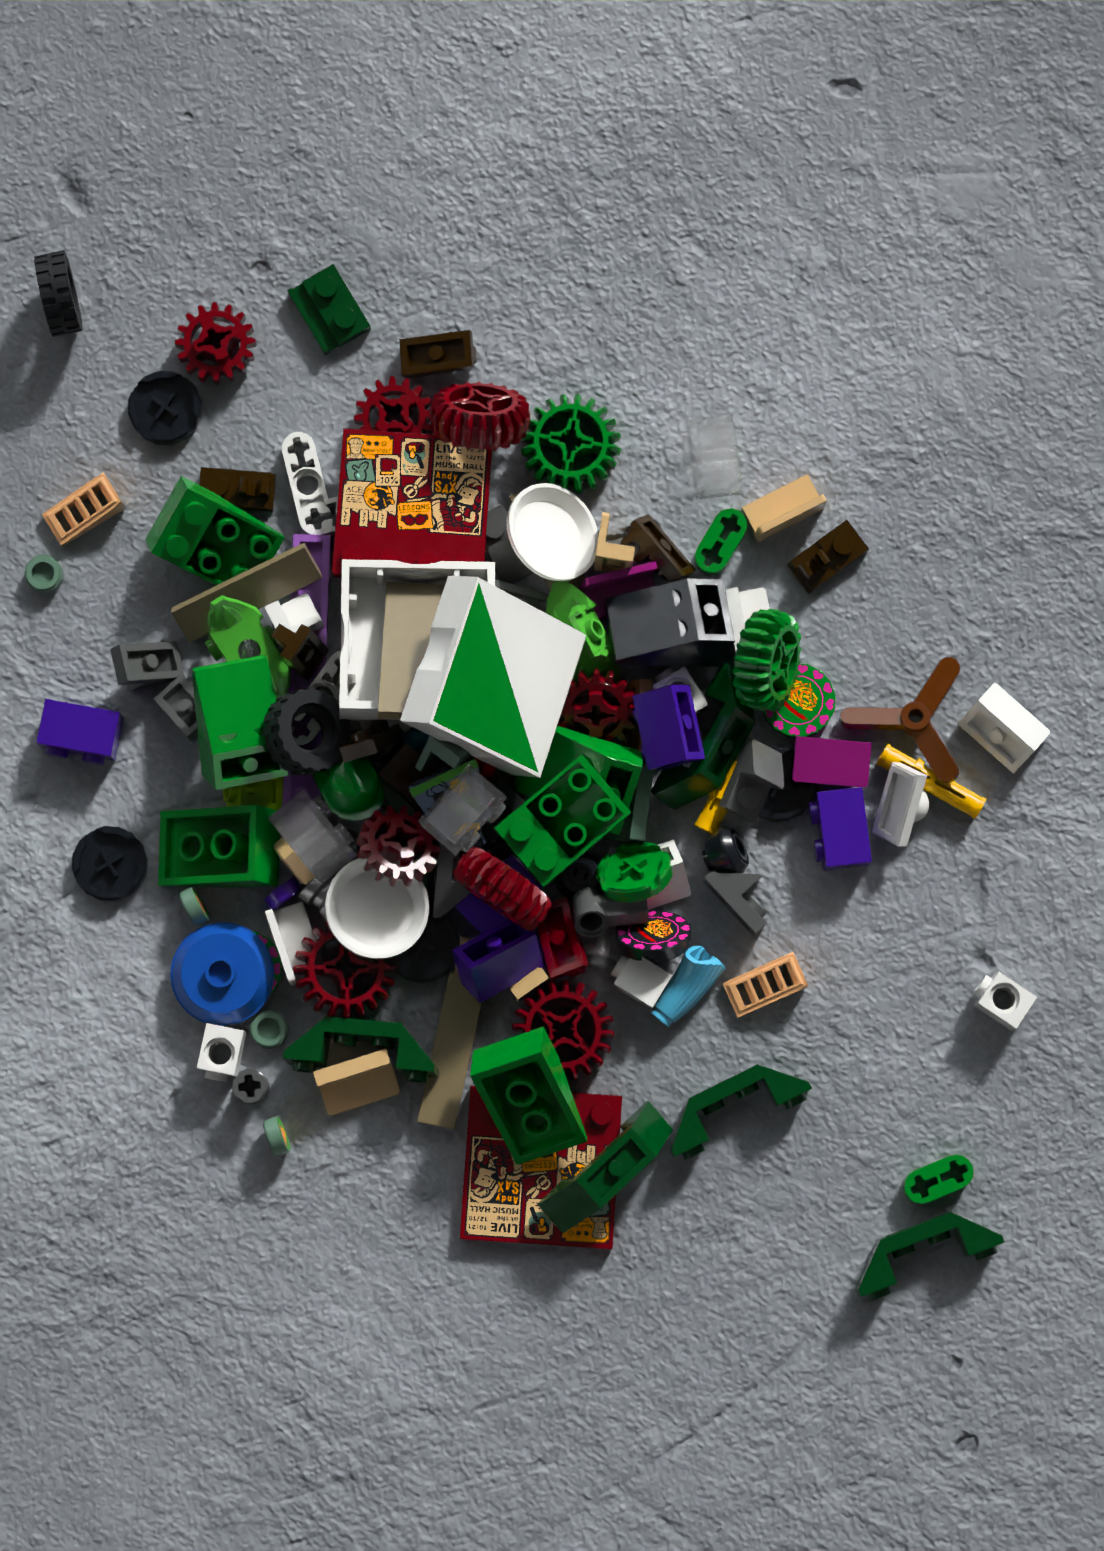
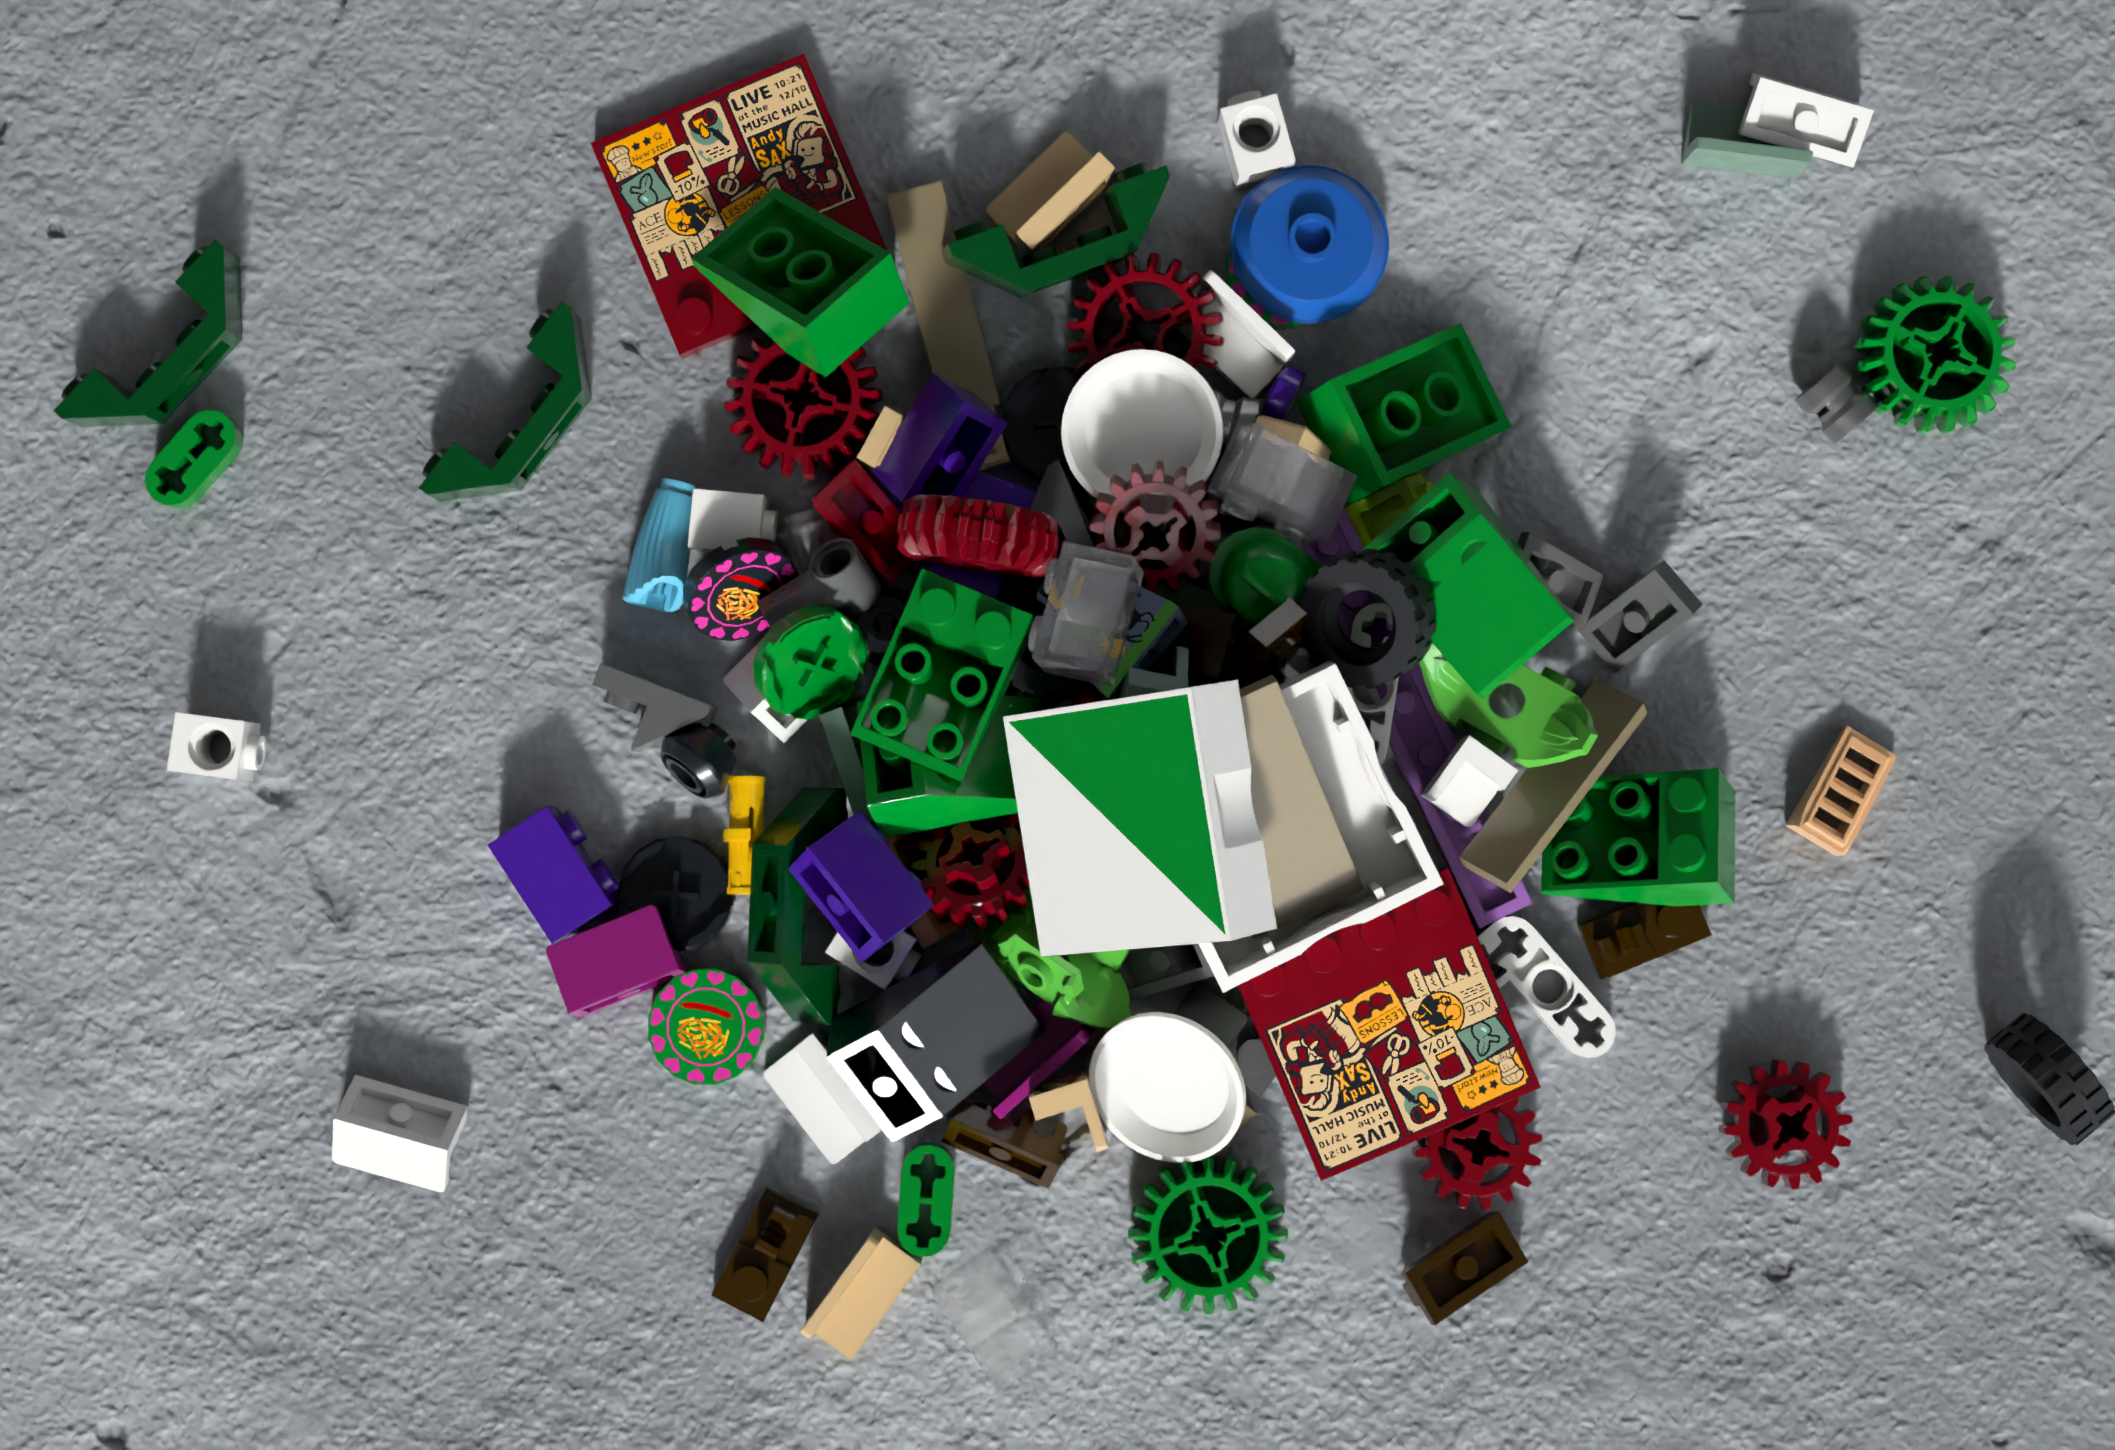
camera: 160 degrees right, 5 degrees up
(43, 574) = (1848, 673): sand green tile -> none
(79, 731) = (1682, 476): dark purple brick -> none
(109, 863) = (1542, 320): black tile -> none
(165, 408) = (1806, 995): black tile -> none
(194, 906) = (1396, 317): sand green tile -> none
(259, 1094) = (1192, 94): dark grey bush -> none
(269, 1029) = (1207, 206): sand green tile -> none
(276, 1136) = (1121, 64): sand green tile -> none
(302, 649) = (1432, 734): dark brown plate -> none
(329, 309) = (1650, 1256): dark green plate -> none
(479, 416) = (1356, 1204): dark red gear -> none
(609, 1171) = (636, 239): dark green slope -> none
(751, 780) = (712, 884): dark grey slope -> none
(767, 659) = (771, 1055): green gear -> none
(795, 973) = (542, 591): light nougat slope -> none
(901, 804) = (487, 947): white tile -> none
(923, 731) = (527, 1107): reddish brown piece -> none
(947, 792) = (533, 1007): yellow pin -> none

